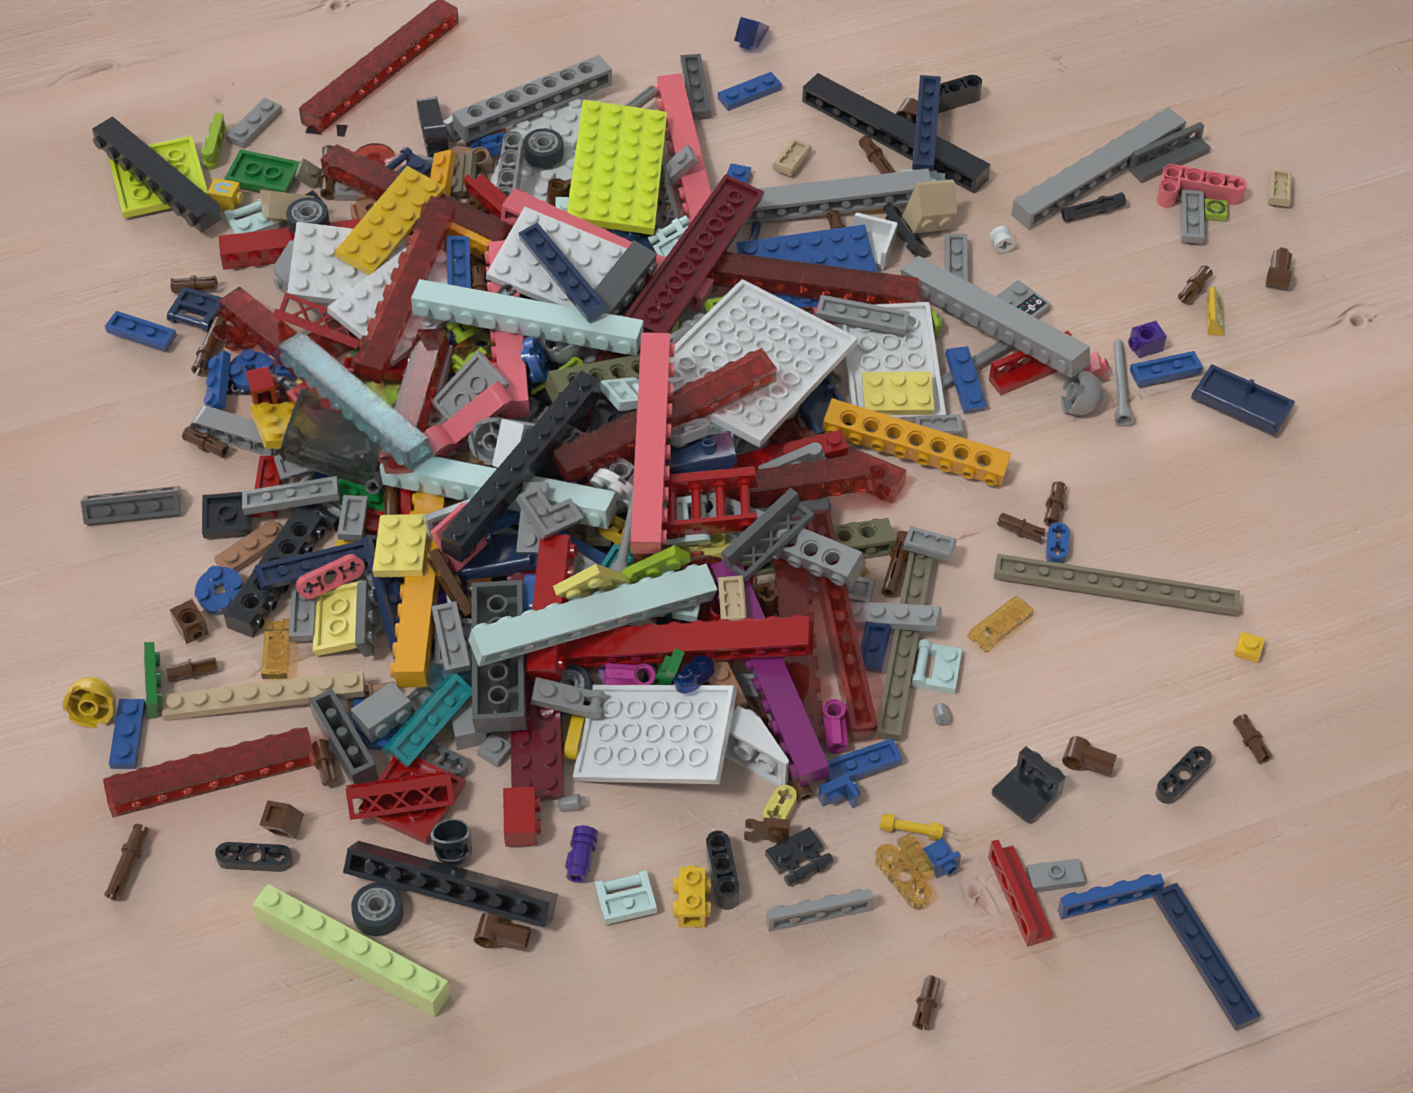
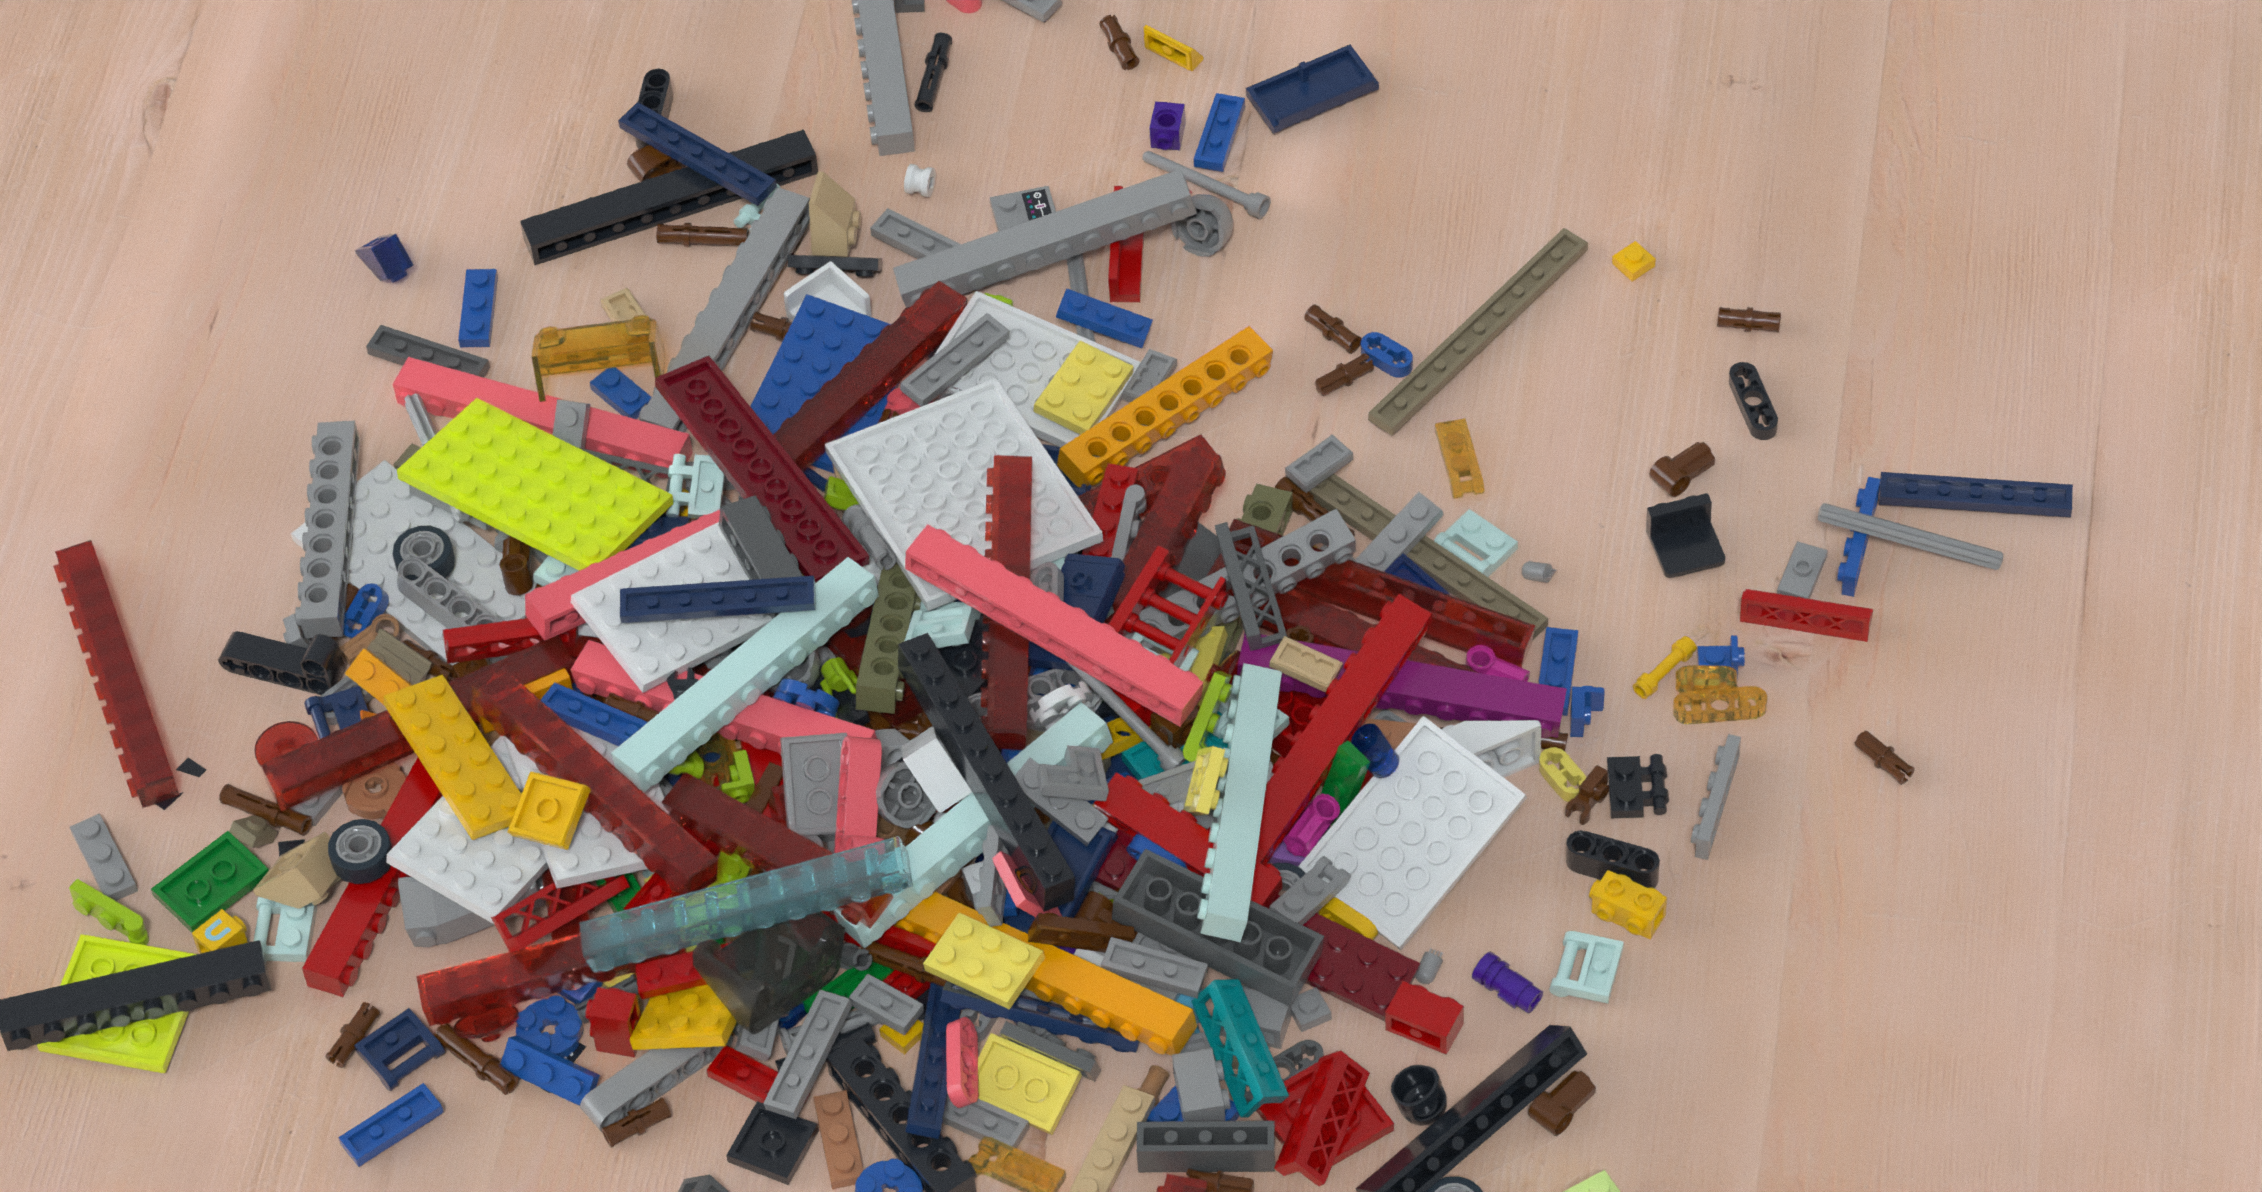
camera: 55 degrees left, 0 degrees up
(368, 275) = (549, 810): none -> yellow plate
(760, 160) = (596, 348): none -> clear yellow windscreen
(1128, 926) = (1910, 536): none -> light grey axle

